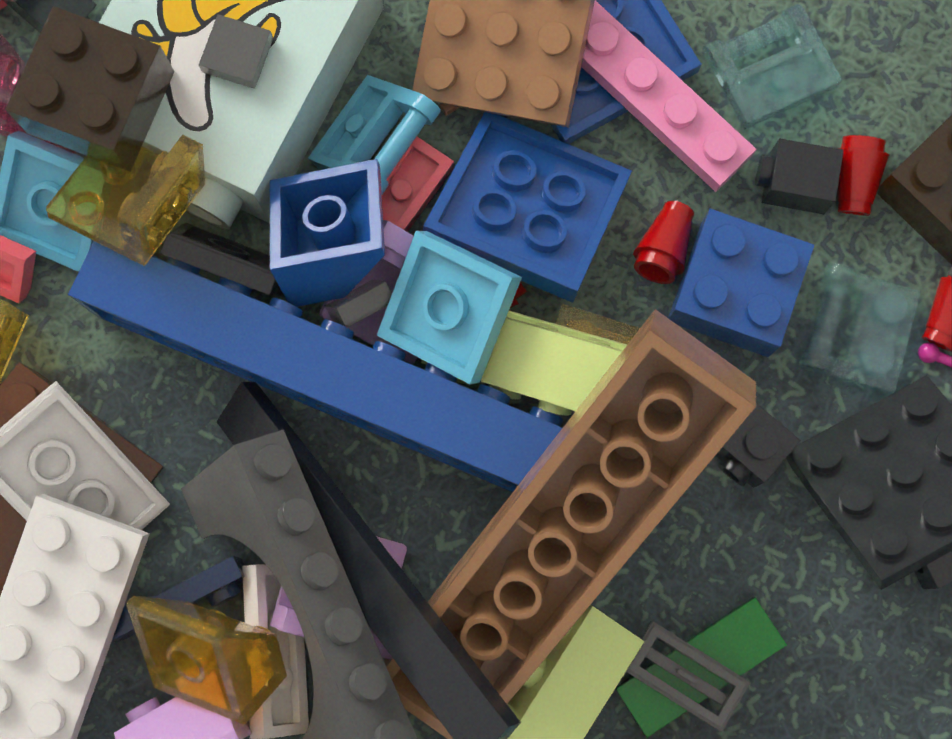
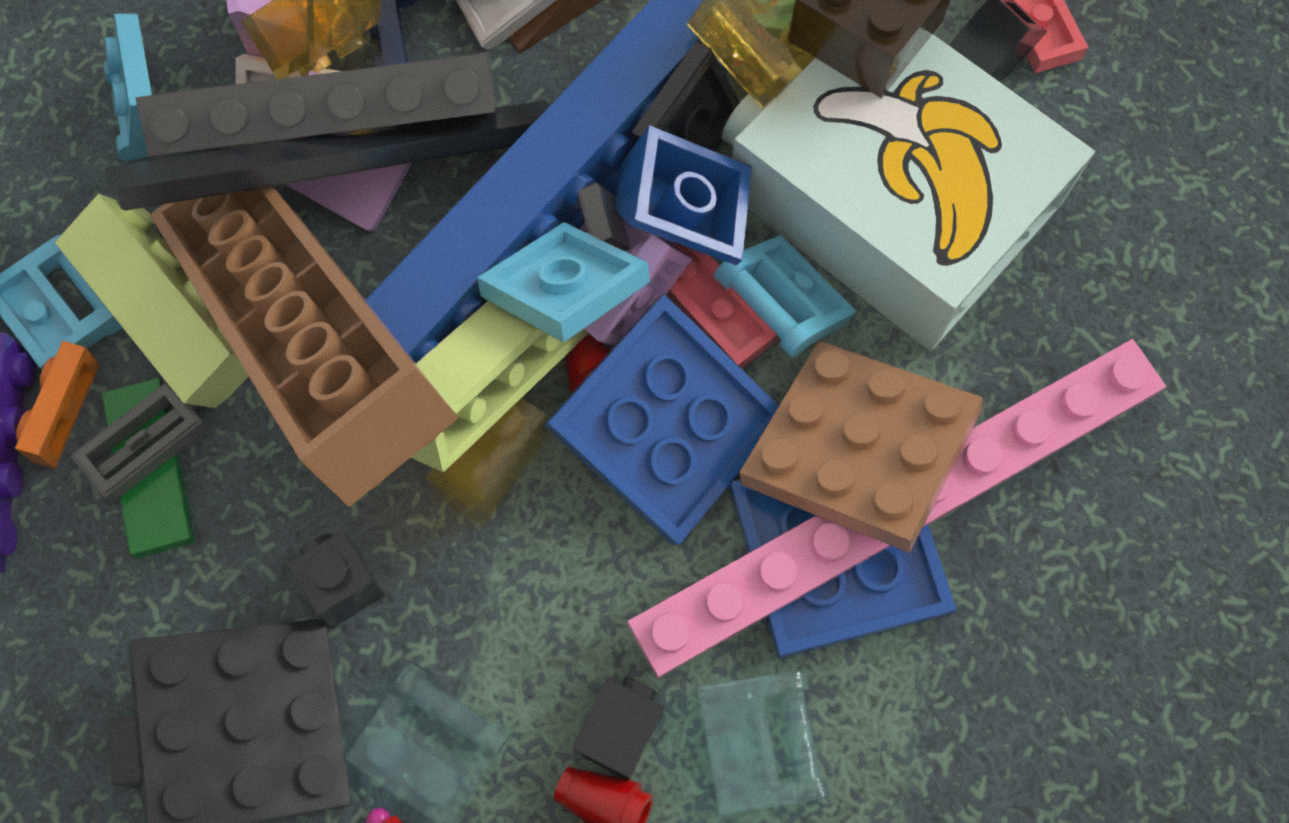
camera: 105 degrees right, 10 degrees down
(236, 51) = (886, 150): dark grey tile -> none
(665, 244) = (589, 559): red cone -> none
(740, 283) = (516, 617): blue brick -> none

